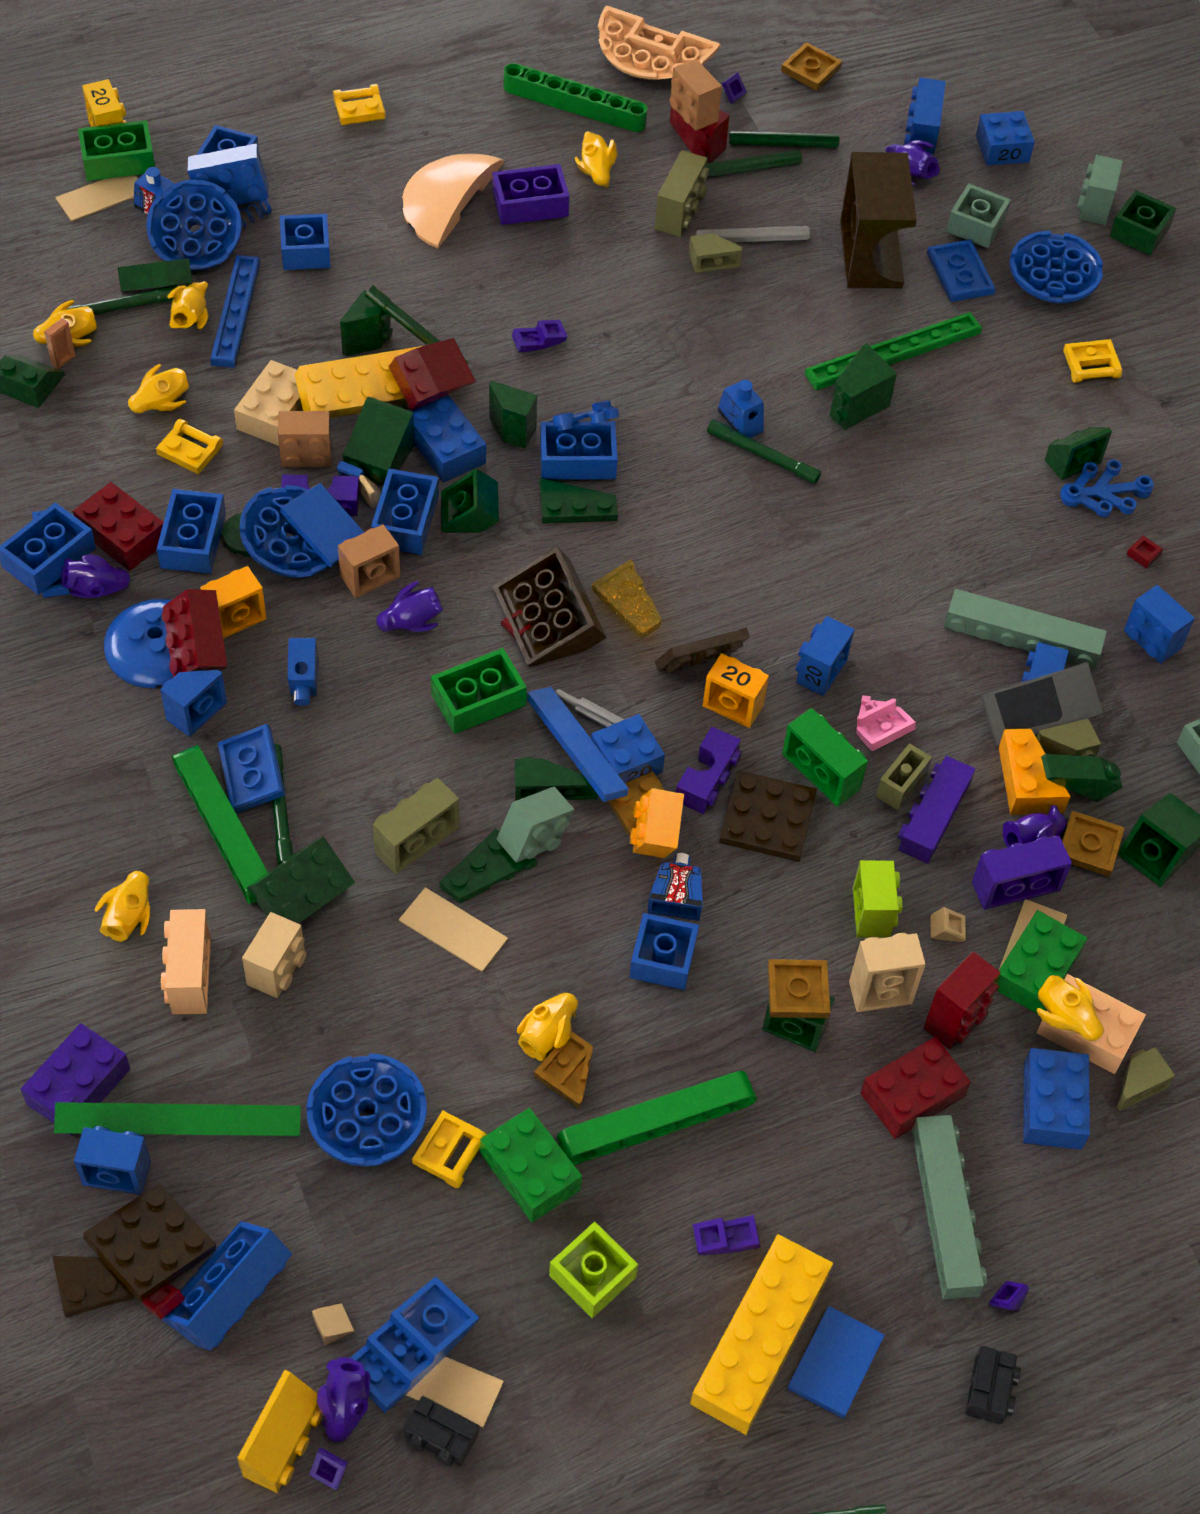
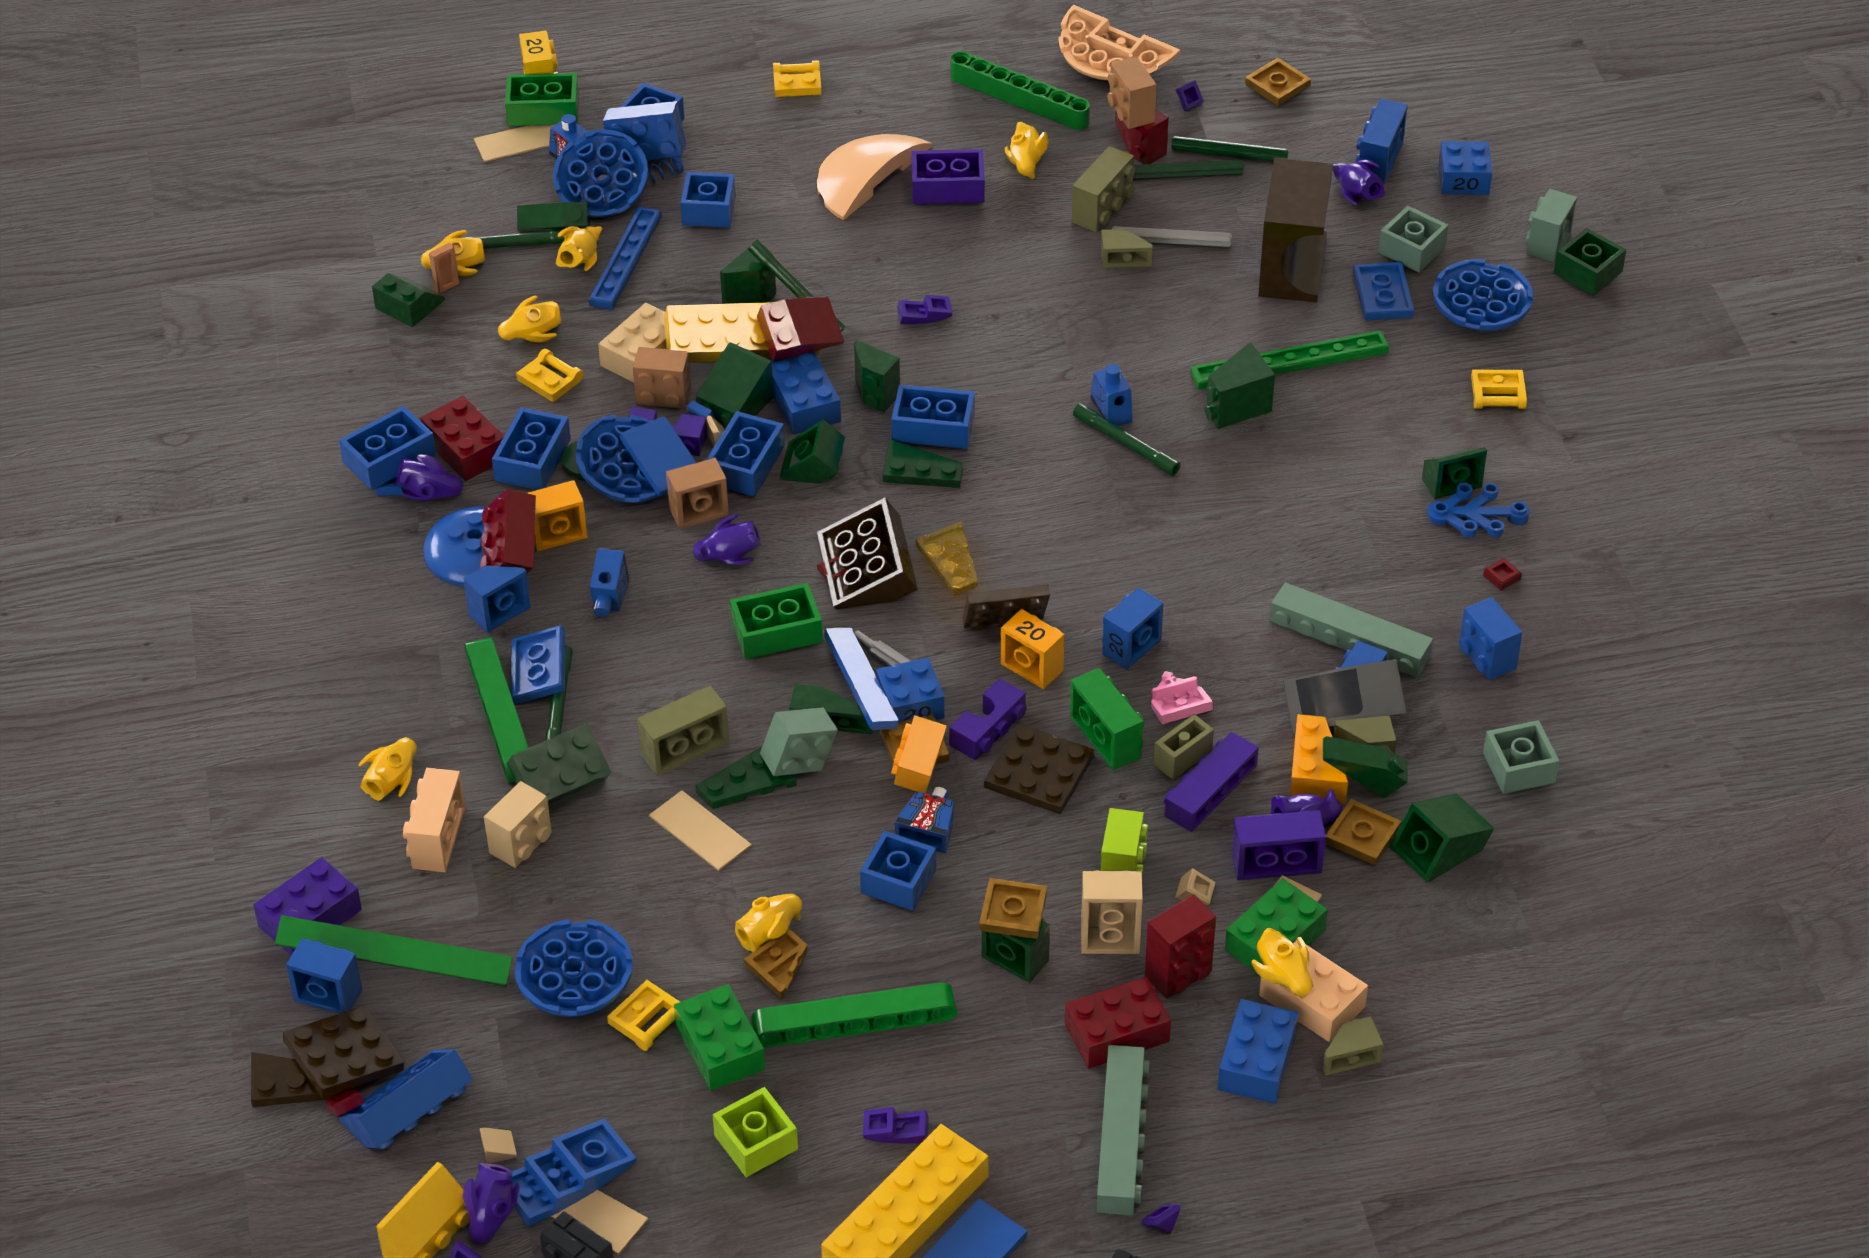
camera: 15 degrees right, 10 degrees down
(600, 412) = (967, 383): blue plant -> none

